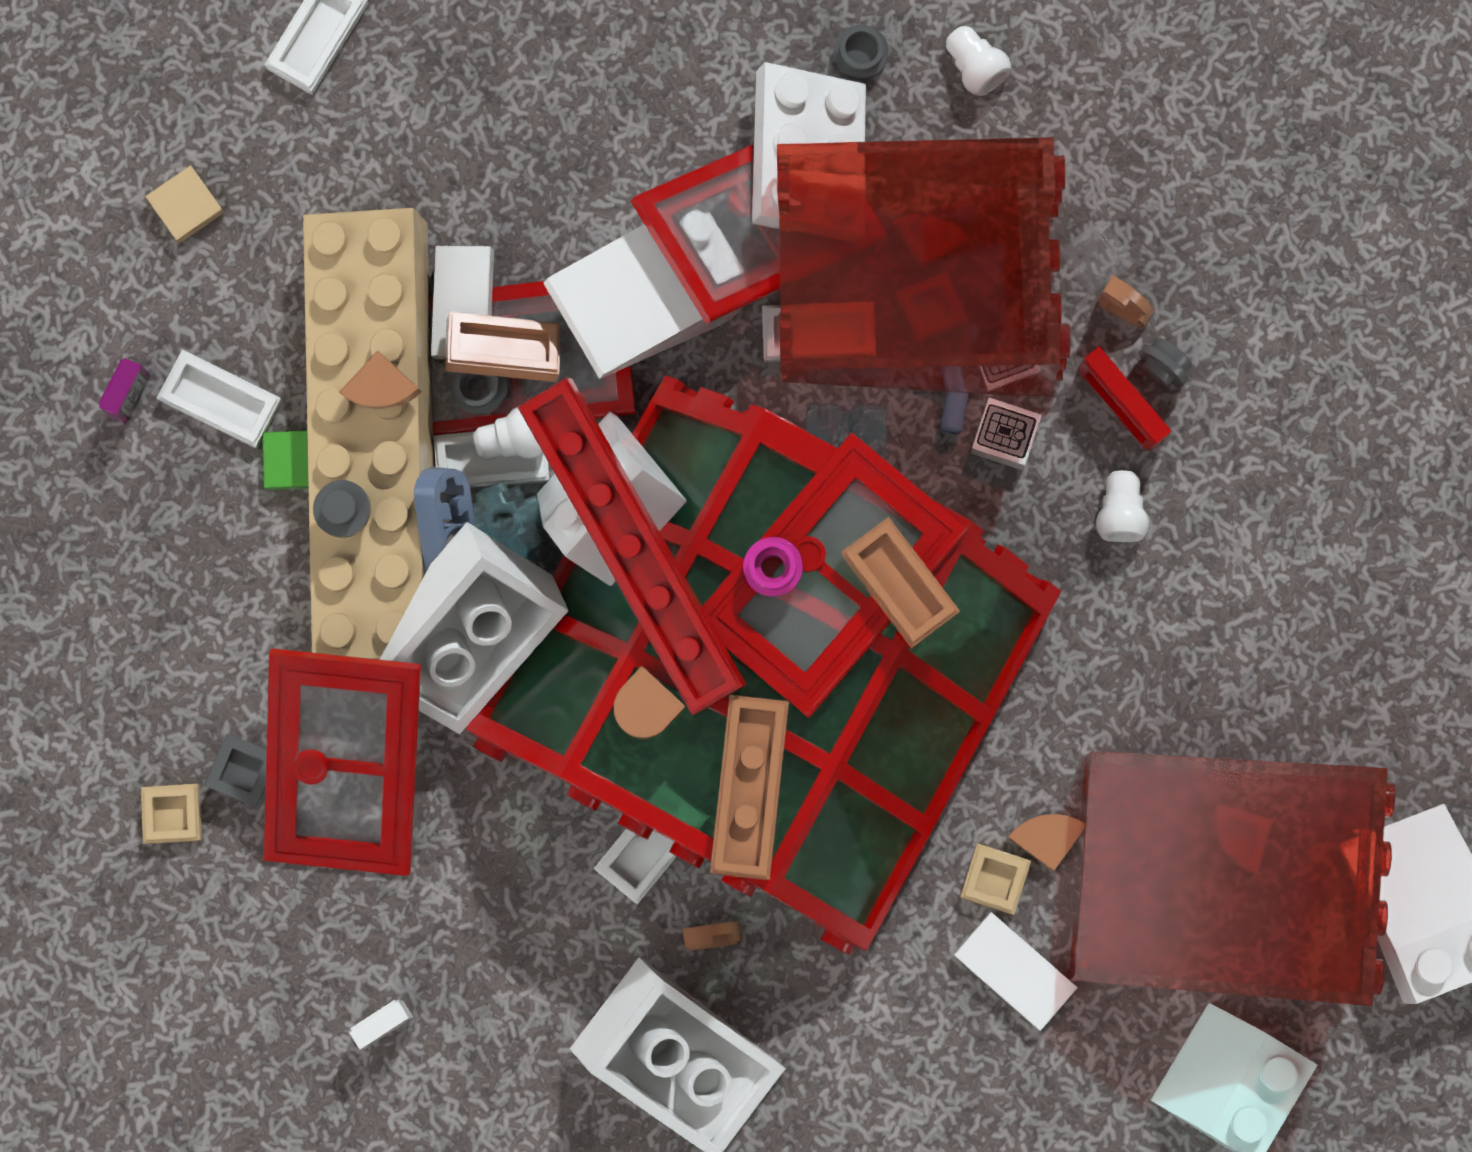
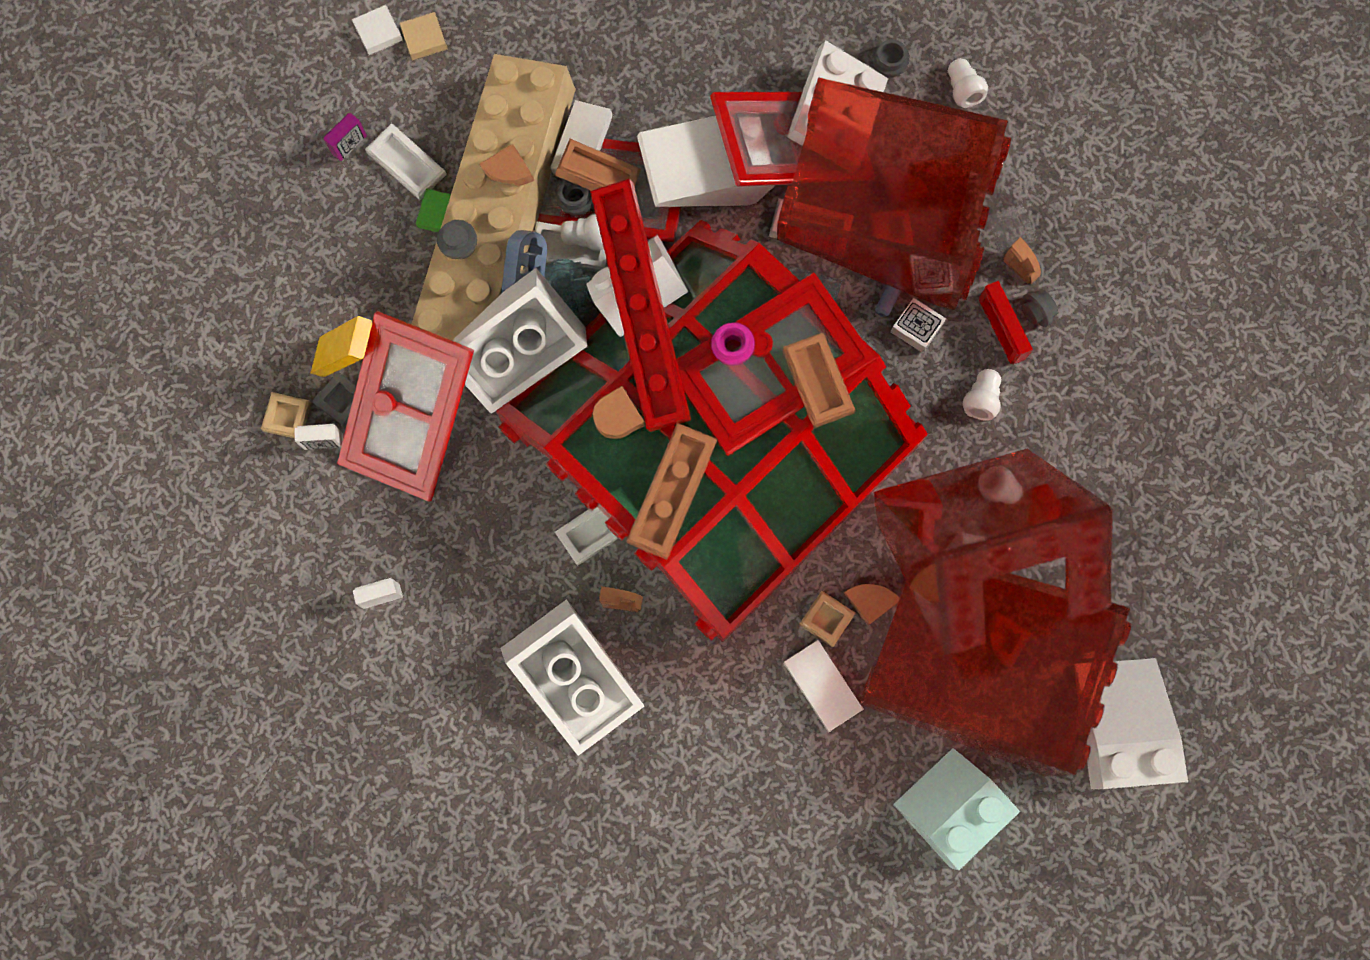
camera: 20 degrees right, 5 degrees down
(115, 213) = (377, 29): none -> white tile
(227, 704) = (341, 346): none -> yellow tile
(229, 832) = (318, 436): none -> white tile
(1174, 709) = (988, 523): none -> clear red windscreen

